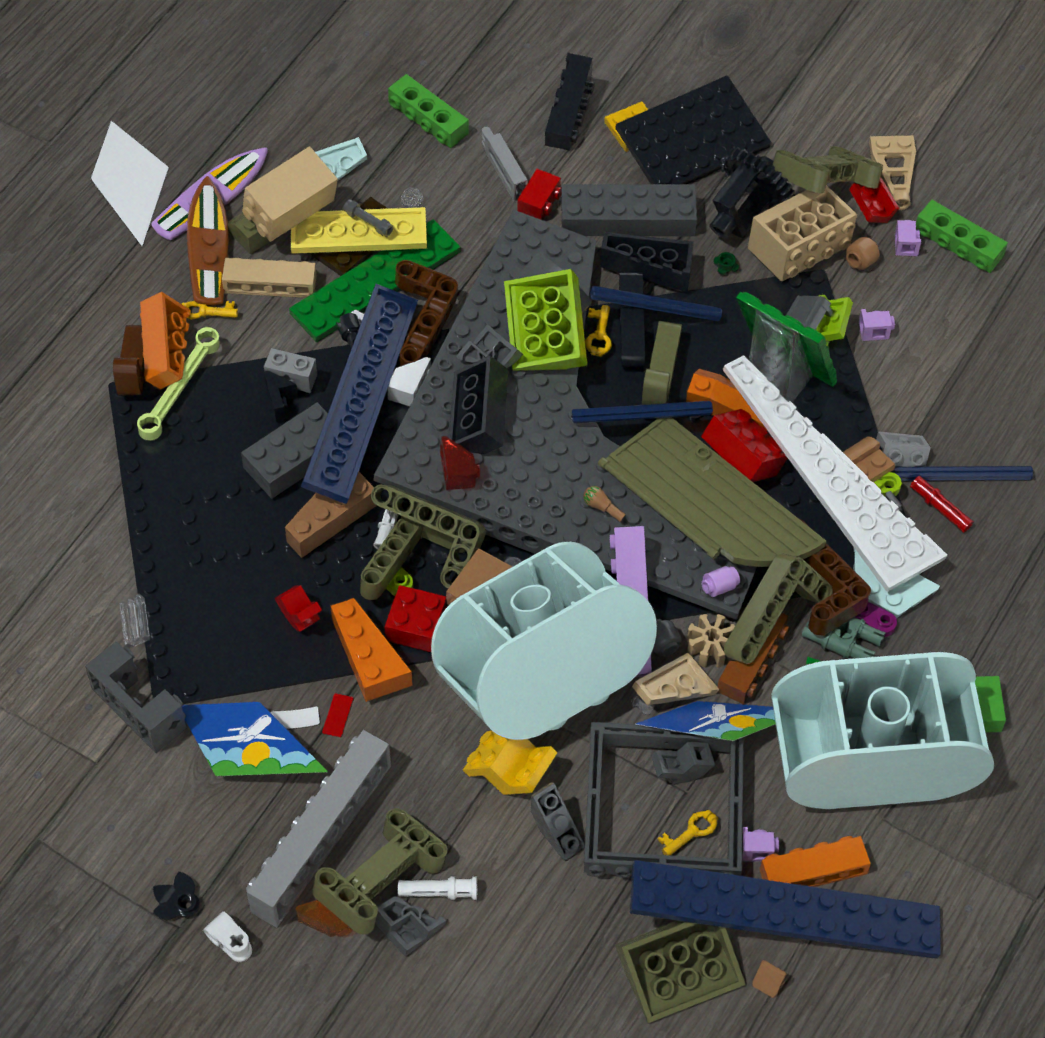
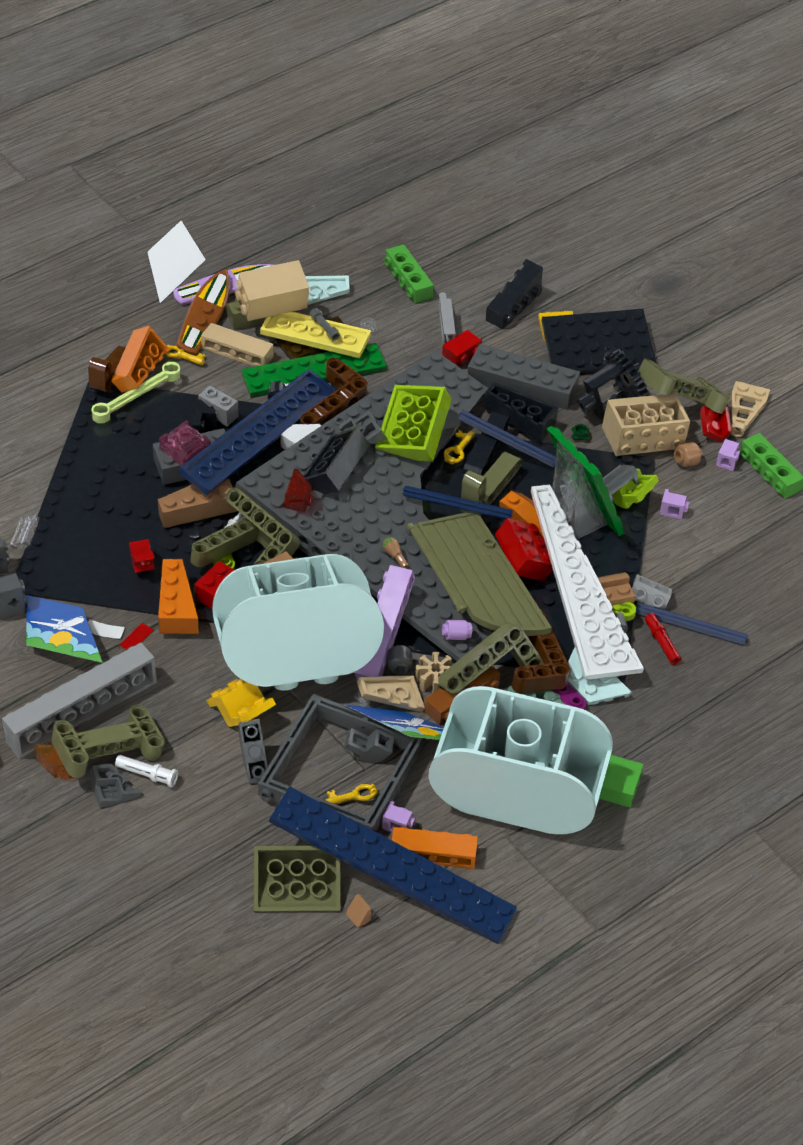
camera: 20 degrees right, 10 degrees down
(285, 443) = (183, 443): none -> clear pink brick

